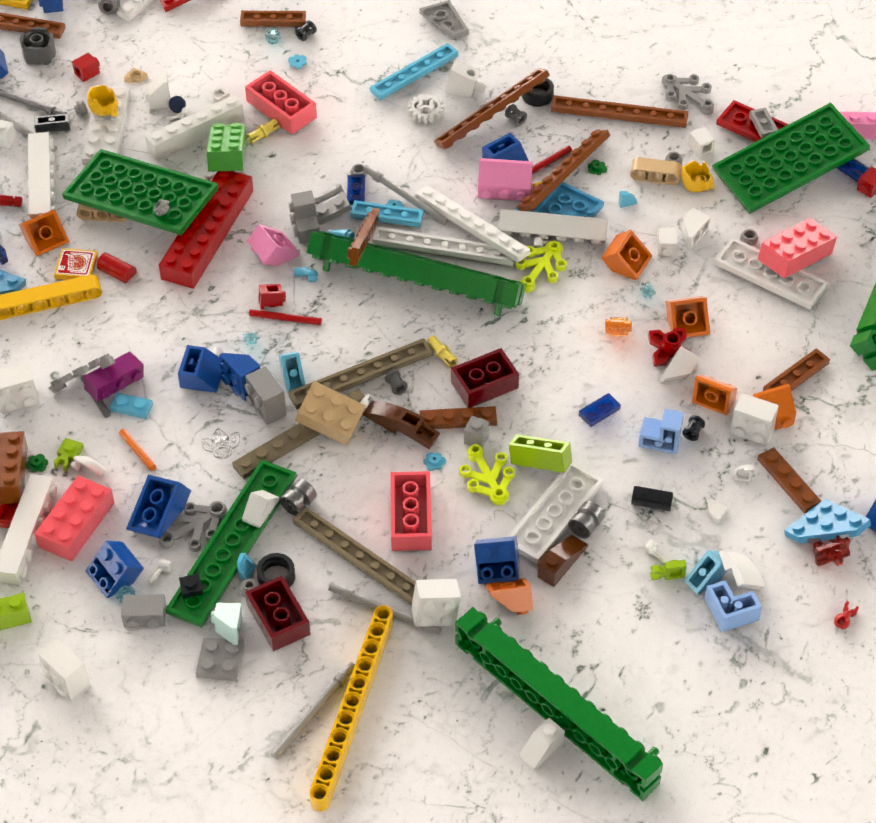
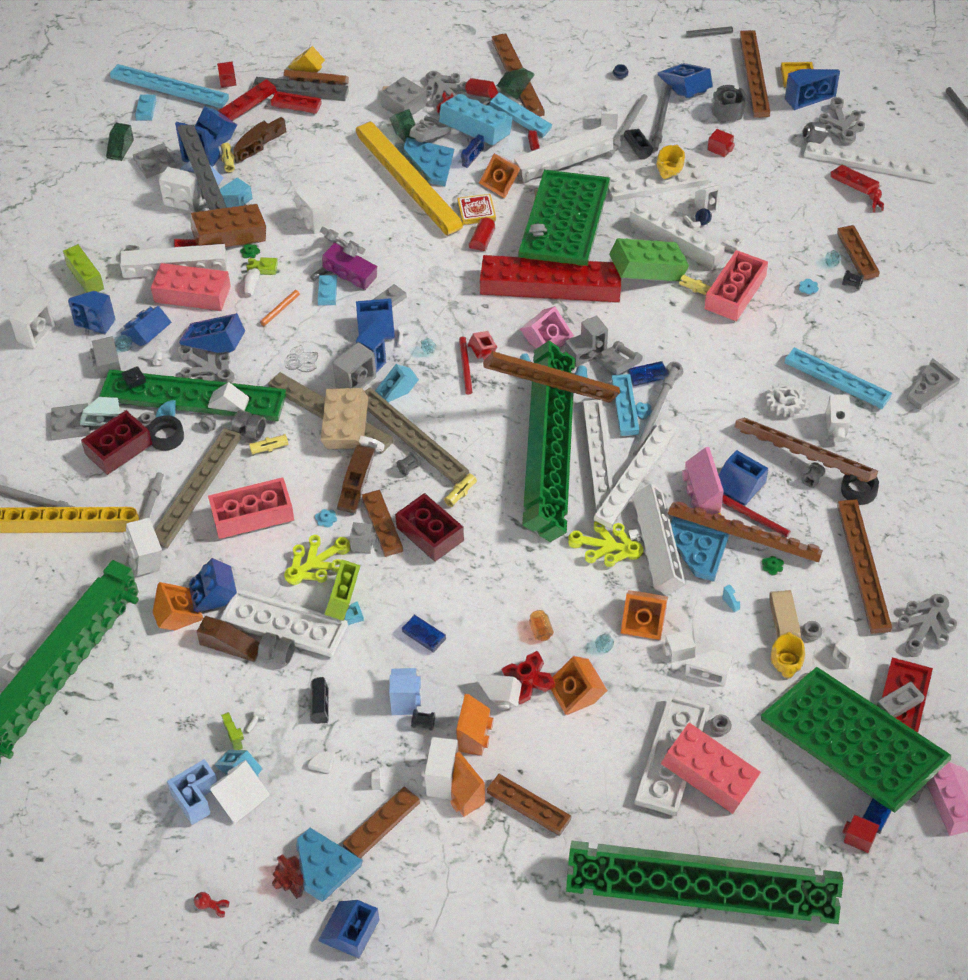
camera: 75 degrees right, 0 degrees up
(78, 608) = (92, 311): none -> blue slope
(135, 76) = (730, 180): tan tile -> none
(167, 358) = (393, 292): none -> light grey plate
(276, 534) = (207, 423): none -> light grey plate
(325, 488) = (256, 447): none -> light yellow pin

